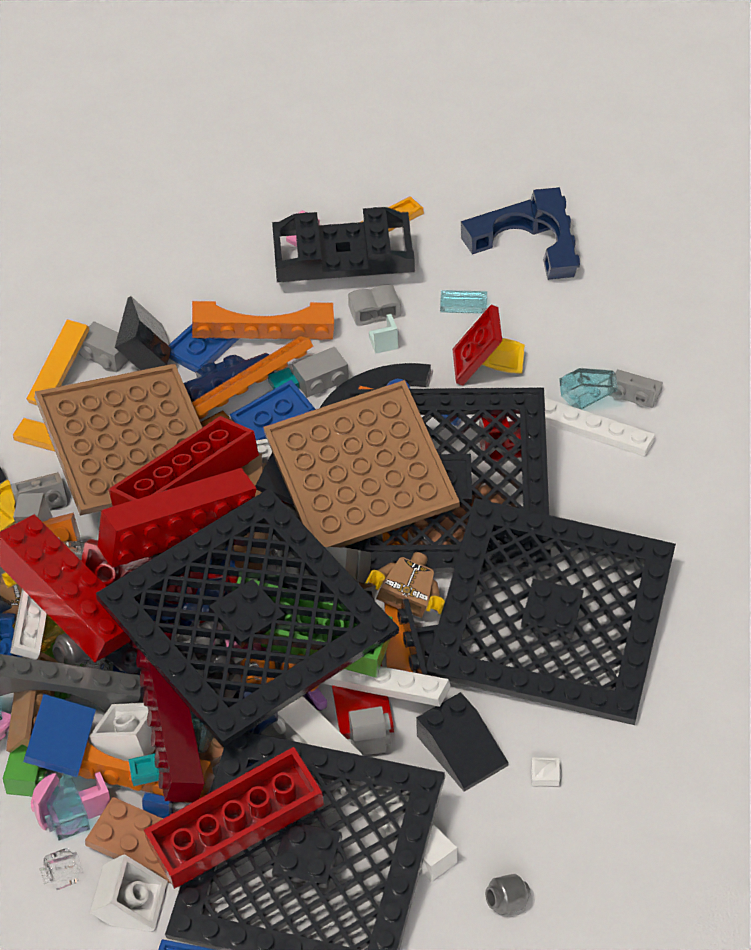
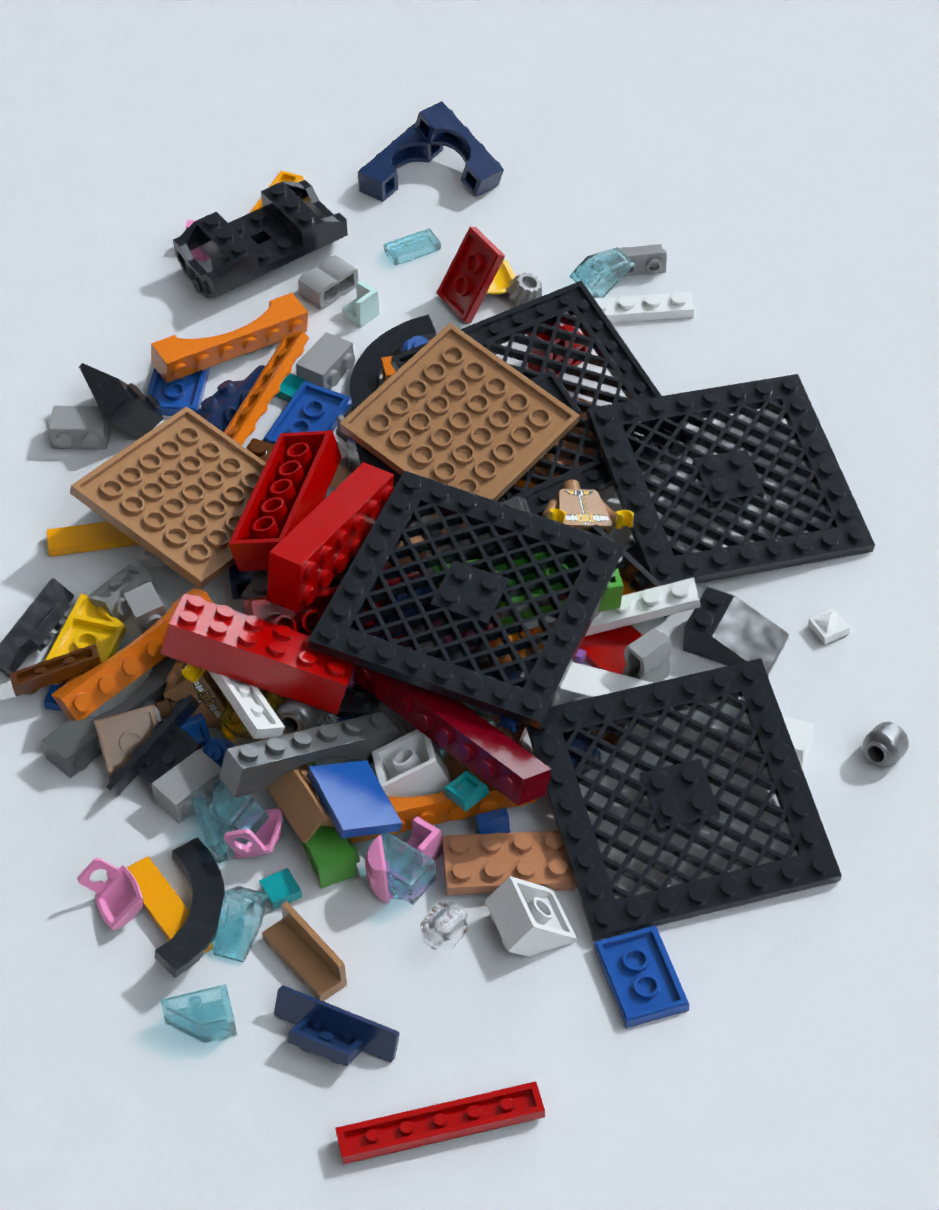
camera: 30 degrees left, 0 degrees up
(60, 358) = (46, 462): light orange tile -> none
(234, 817) = (598, 789): red brick -> none
(521, 375) = (524, 288): none -> light grey piece

